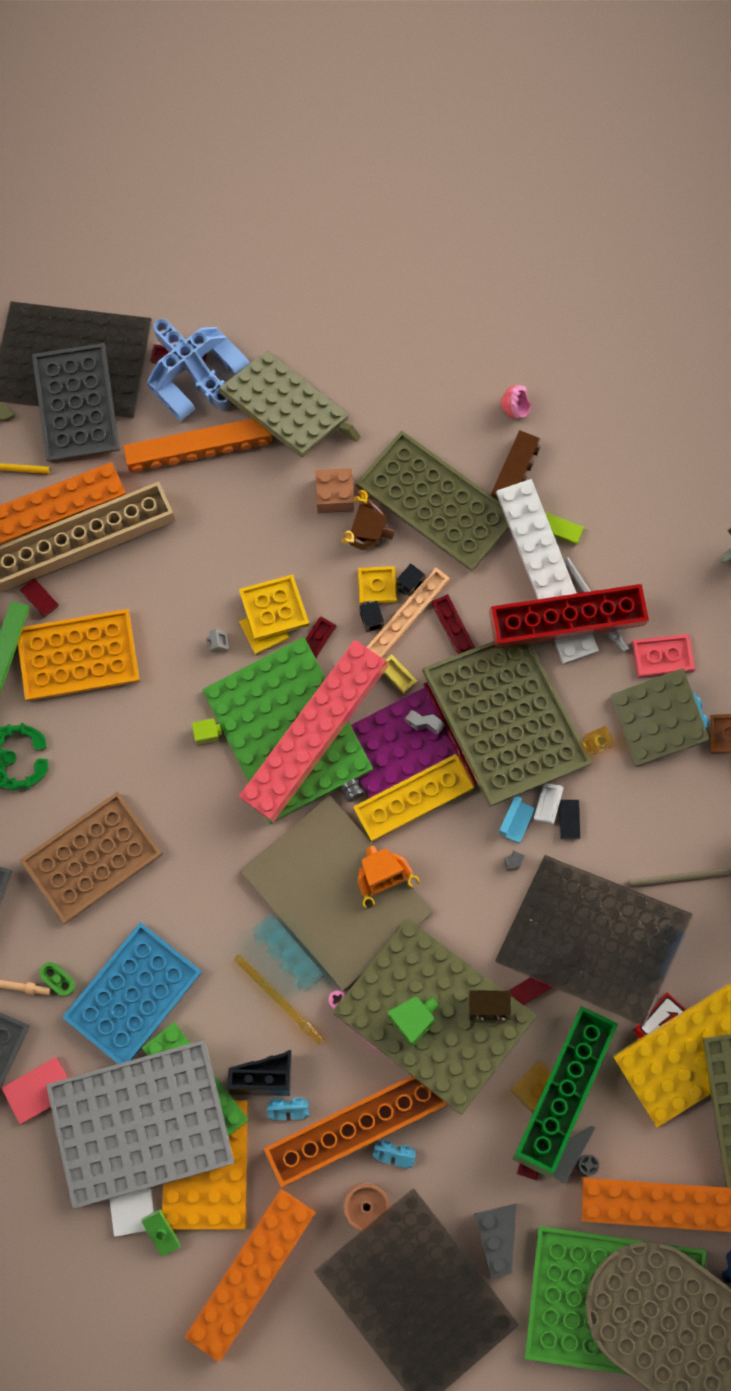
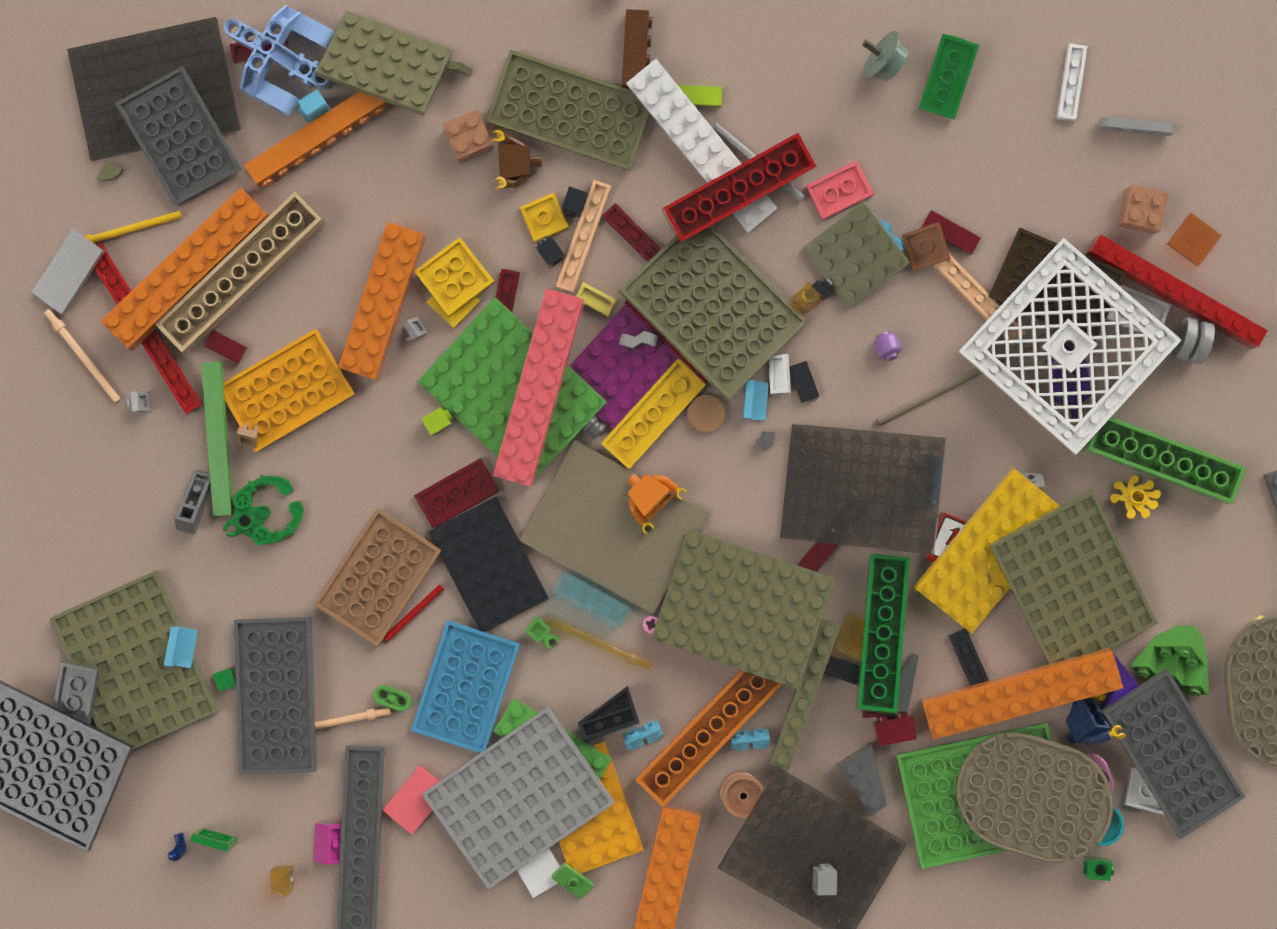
camera: 20 degrees left, 15 degrees up
(24, 681) = (247, 437): none -> medium nougat tile
(111, 904) = (413, 613): none -> red bar
(197, 806) = (456, 493): none -> dark red tile
(198, 606) = (382, 301): none -> orange brick
(201, 885) = (488, 565): none -> black plate
(205, 415) = (313, 106): none -> medium azure brick
(225, 966) = (539, 630): none -> bright green plate
(413, 1018) = (727, 621): bright green torso -> none
(419, 1328) = (825, 880): none -> light grey brick
(464, 815) = (706, 413): none -> medium nougat tile
(466, 1125) = (803, 698): none -> olive brick
(489, 1006) = (791, 586): dark brown brick -> none
(511, 1116) = (842, 670): none -> black tile
(545, 1198) = (894, 729): none -> dark red piece
(591, 1165) = (924, 690): dark grey wheel -> none
(618, 737) = (822, 288): none -> black tile
(645, 1151) = (968, 657): none -> black tile
(662, 813) = (887, 346): none -> medium lavender head

